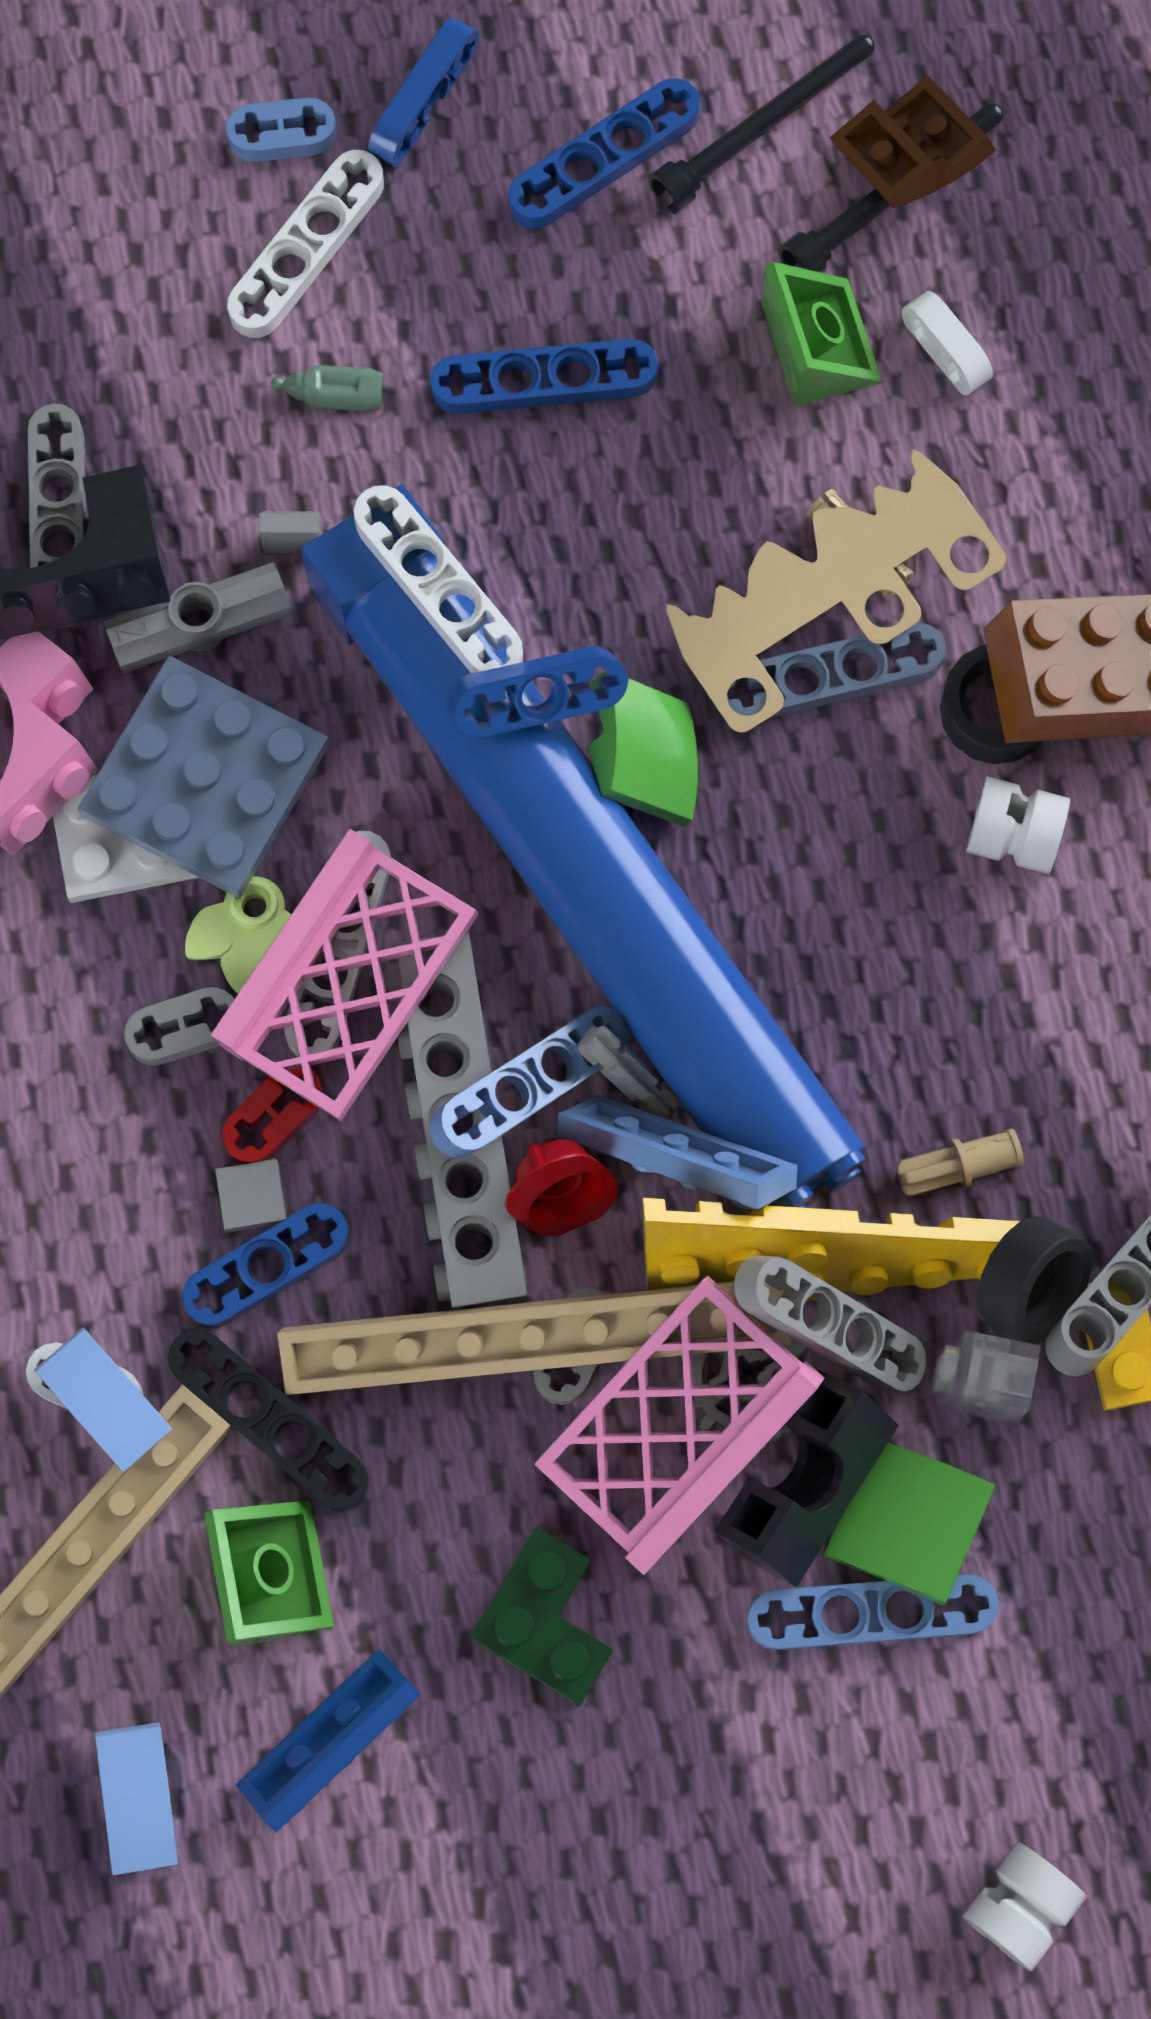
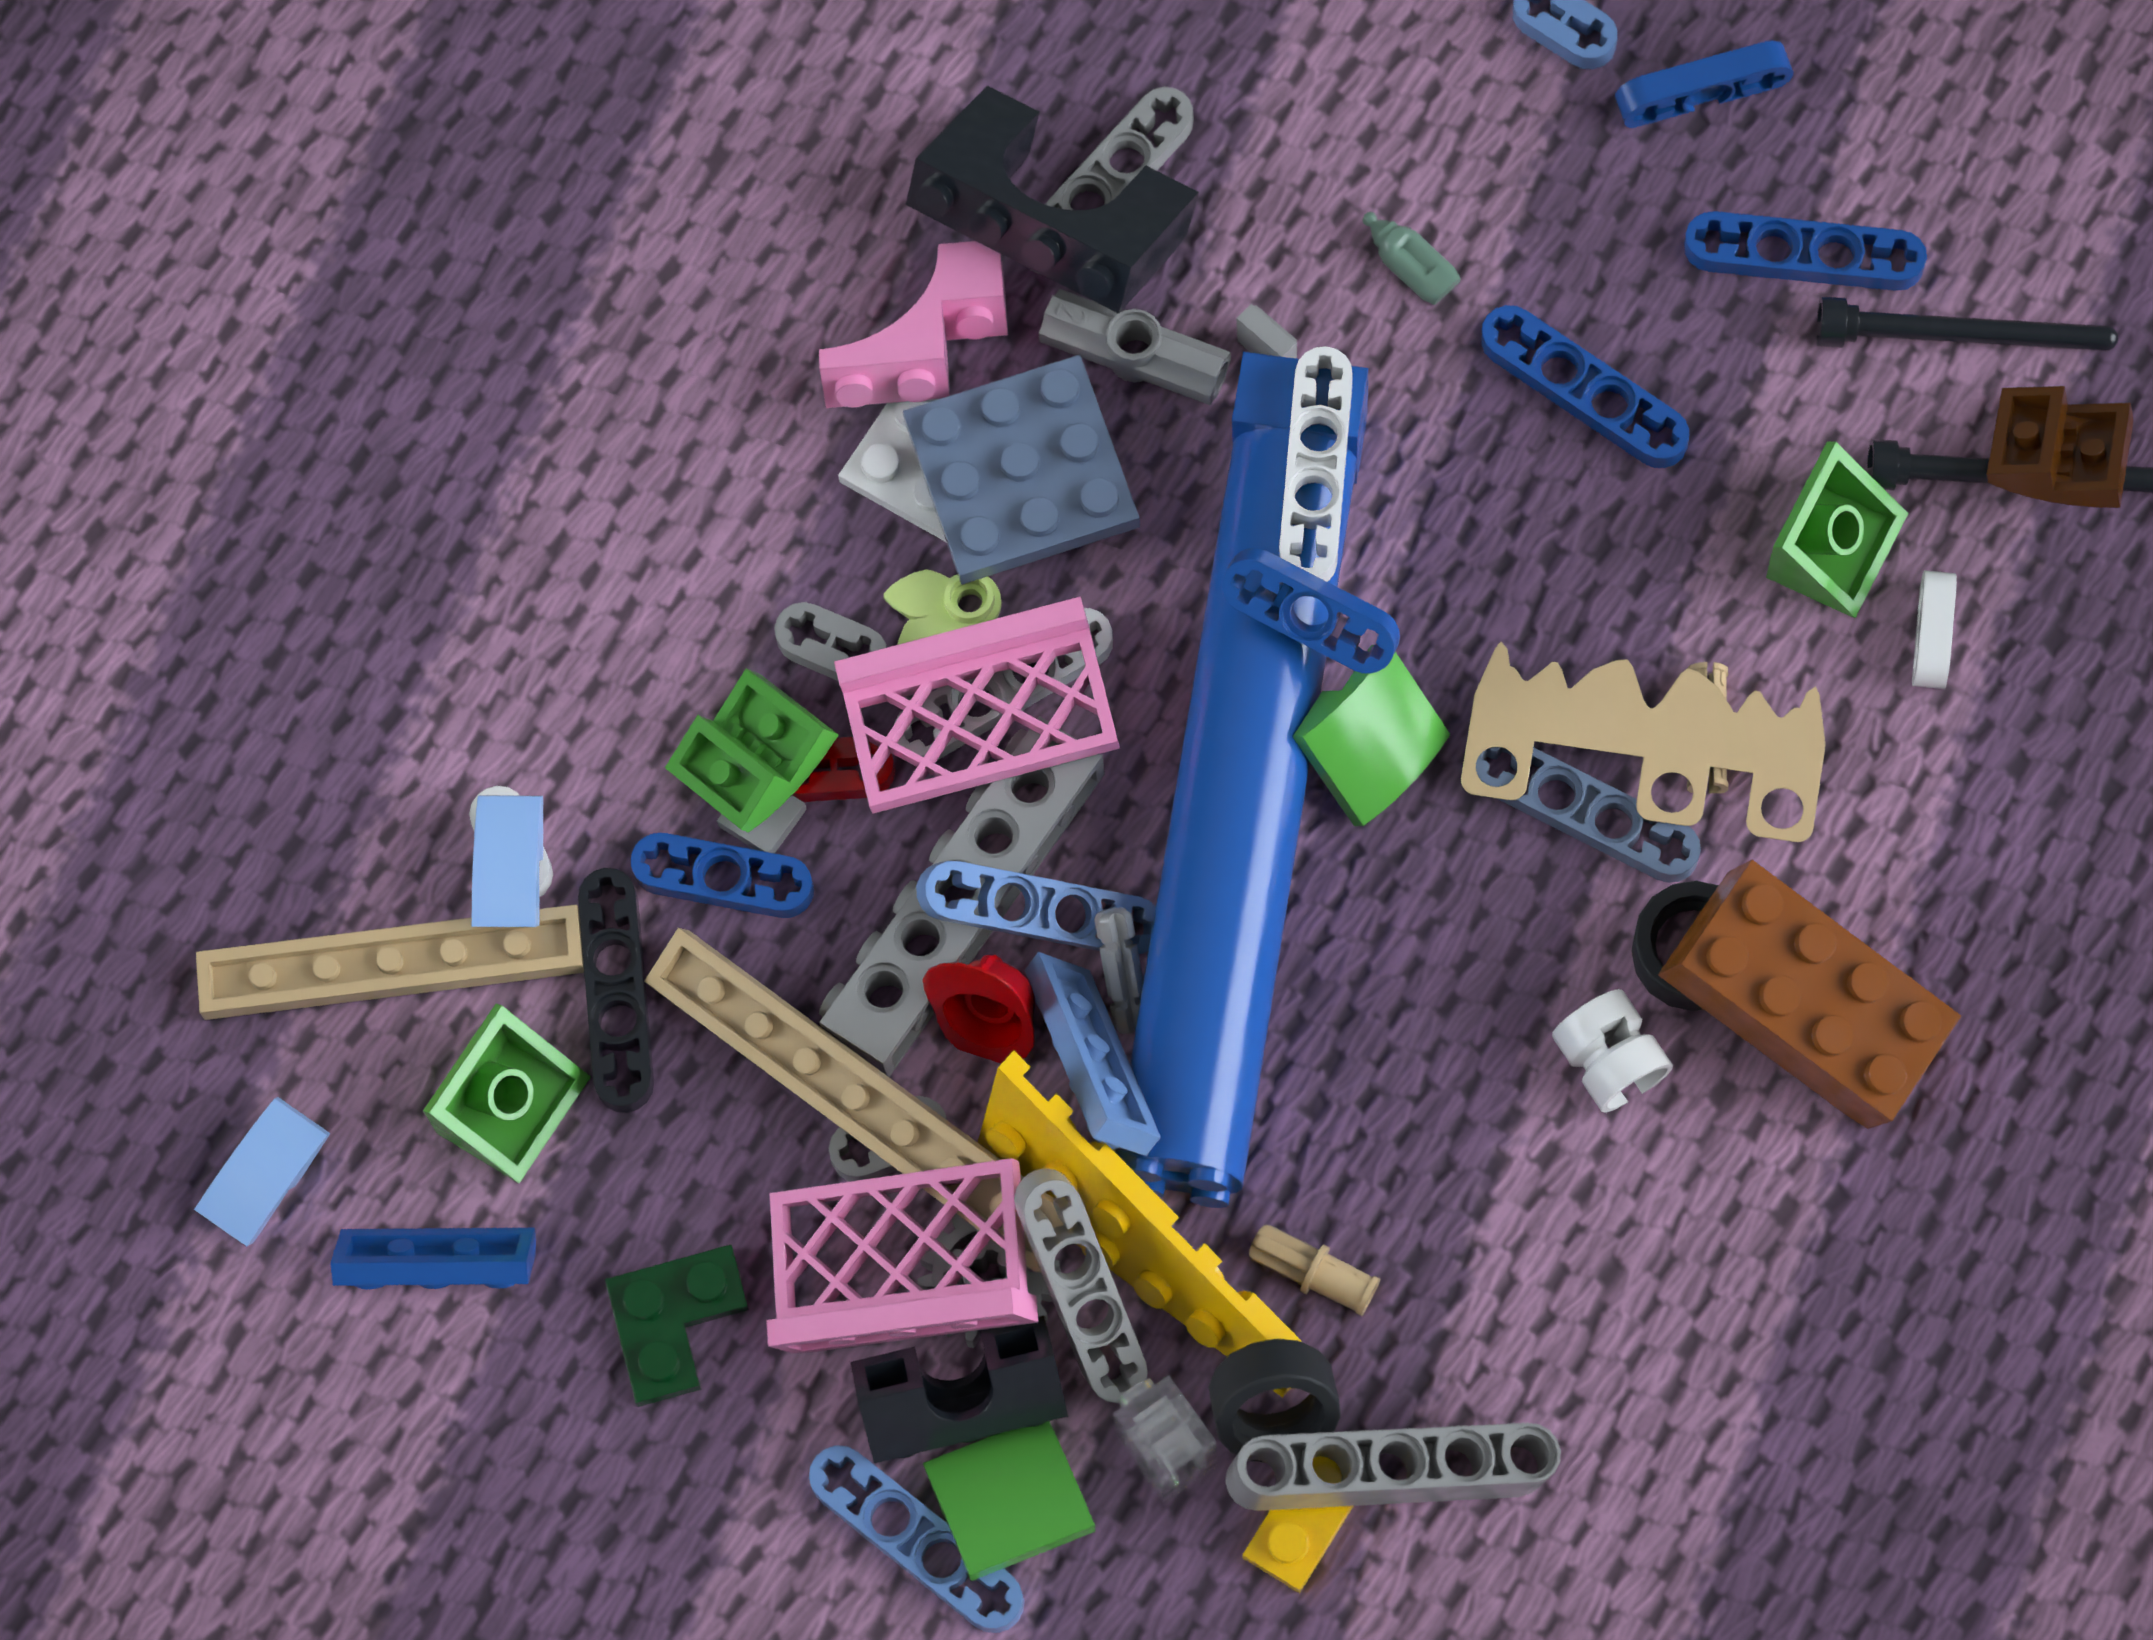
camera: 50 degrees right, 5 degrees down
(203, 1156) = (751, 751): none -> bright green slope
(299, 240) = (1494, 119): white beam -> none

